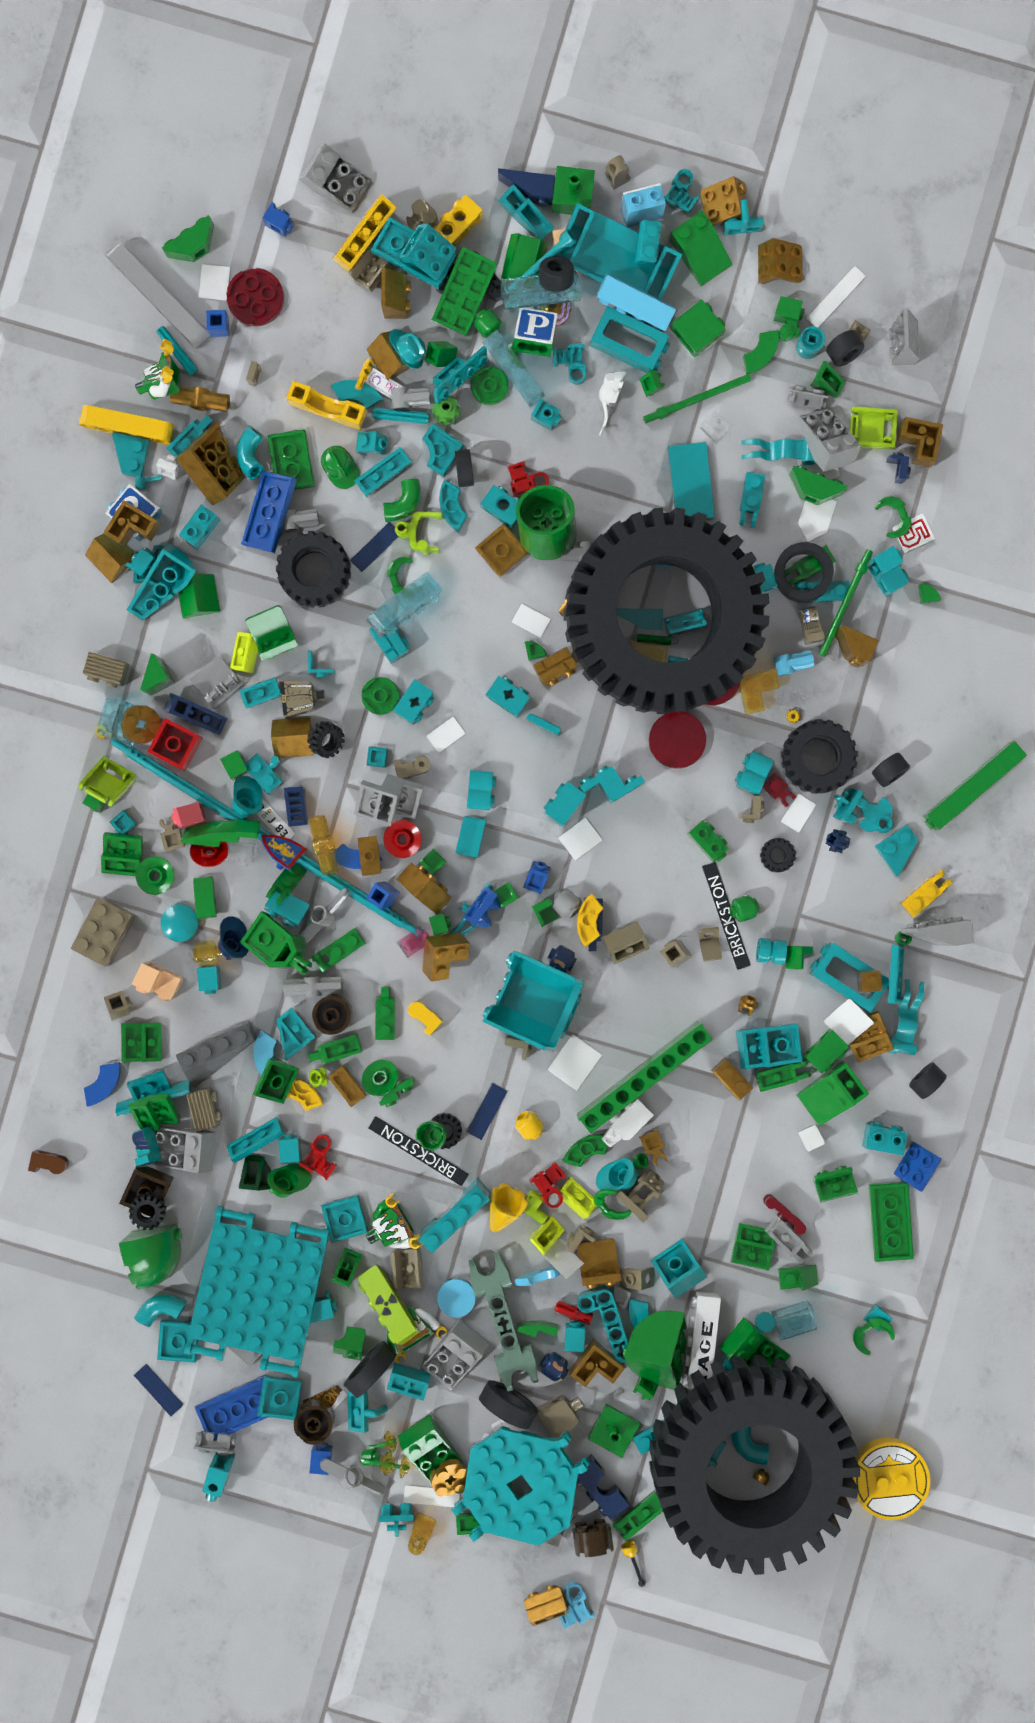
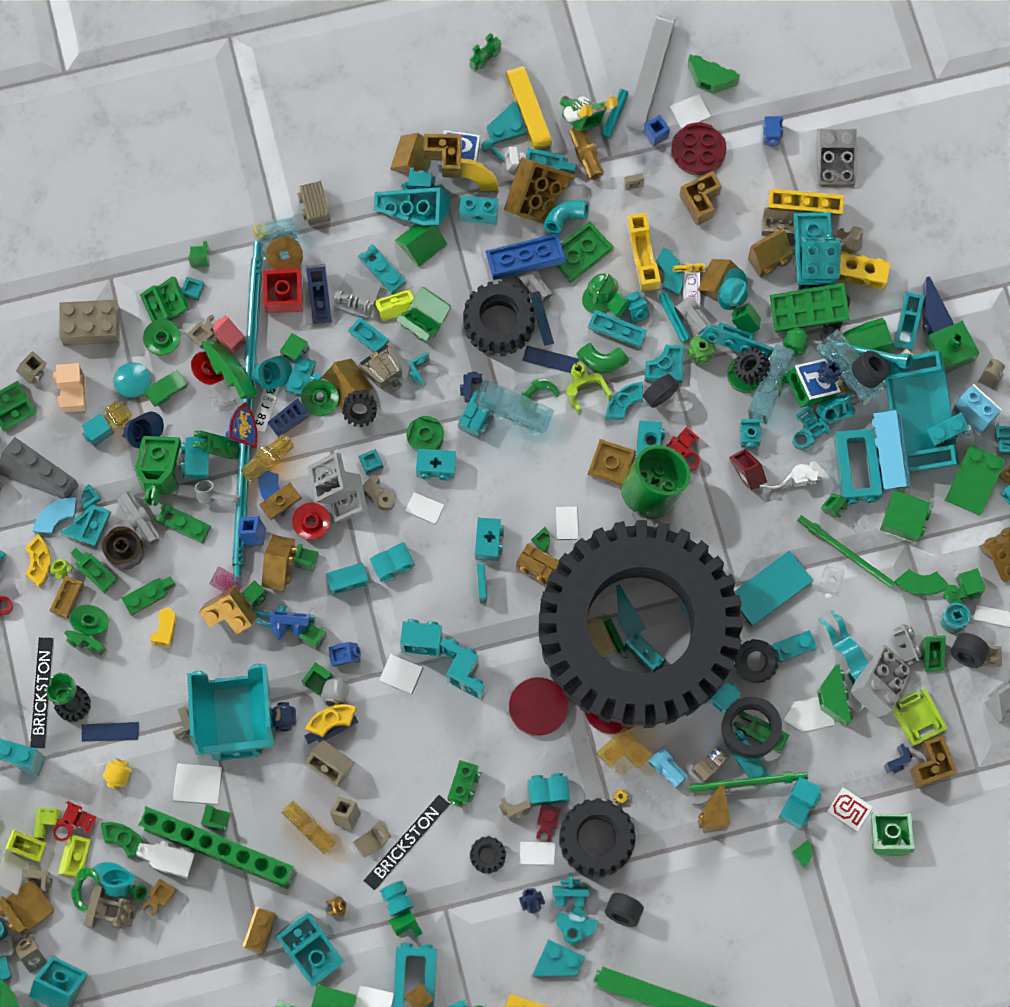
camera: 65 degrees right, 15 degrees down
(49, 435) = (482, 55): none -> green plate
(104, 785) = (214, 254): lime container -> none
(156, 676) = (332, 243): green slope -> none
(167, 506) = (477, 172): none -> yellow tile
(204, 645) = (382, 269): none -> teal plate
(266, 1018) = (89, 497): none -> teal tile
(276, 1080) = (38, 532): green slope -> none
(301, 768) = (316, 405): none -> green dish
(303, 327) = (697, 197): none -> pearl gold brick
(335, 532) = (541, 318): none -> dark blue sticker
(360, 635) = (468, 379): none -> dark blue bracket
(362, 457) = (618, 304): none -> green tile
(500, 373) = (757, 372): none -> black tyre
(505, 1206) = (32, 793): yellow hat -> none
(537, 311) = (829, 372): none -> dark blue gear
(569, 327) = (839, 408): none -> teal piece
(577, 436) = (748, 469): none -> dark red slope
(615, 1063) = (215, 818): none -> green panel
(681, 987) = (299, 819): none -> clear yellow piece
(744, 908) = (421, 852): green head -> none
(756, 520) = (770, 666): none -> black tyre
(780, 1076) = (287, 975): green hinge -> none
(898, 504) = (866, 779): green piece -> none
(957, 511) = (892, 834): none -> green slope

